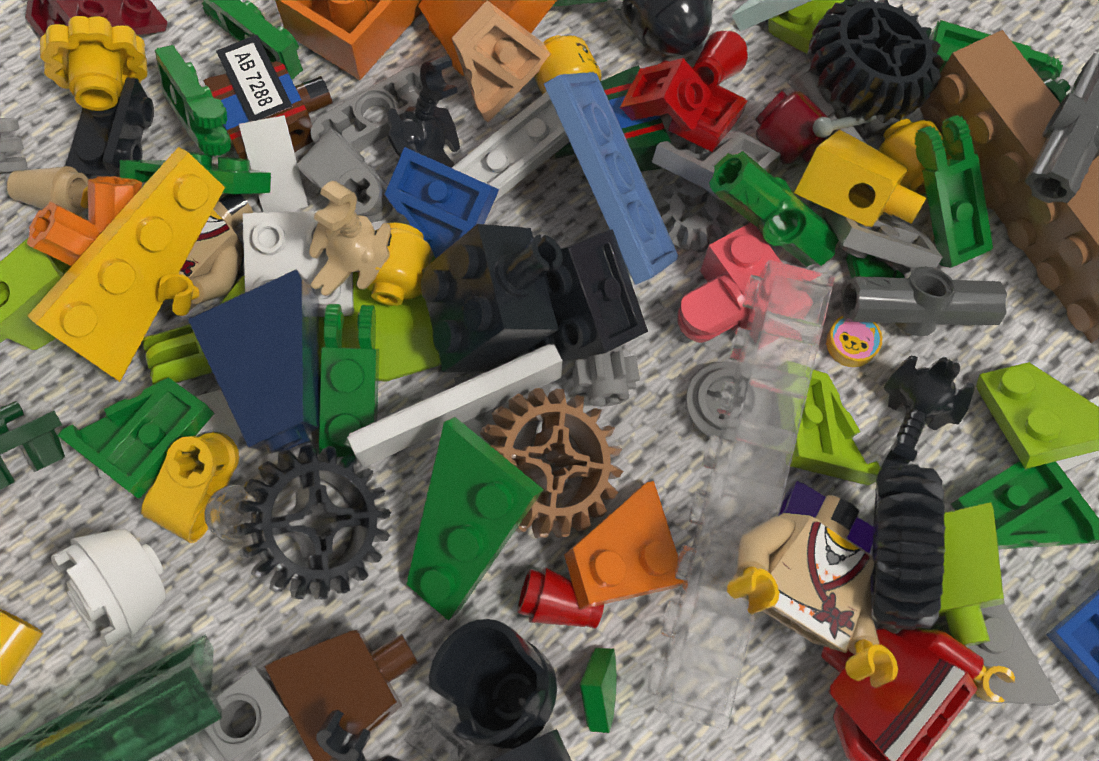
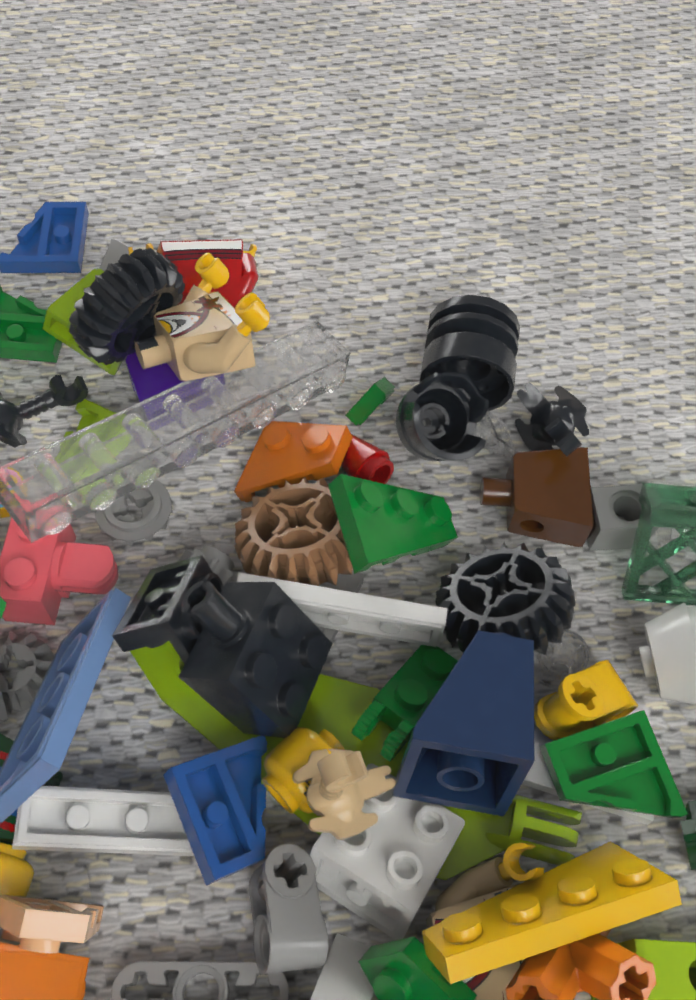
camera: 145 degrees left, 10 degrees down
(425, 125) = (176, 923): black piece -> none

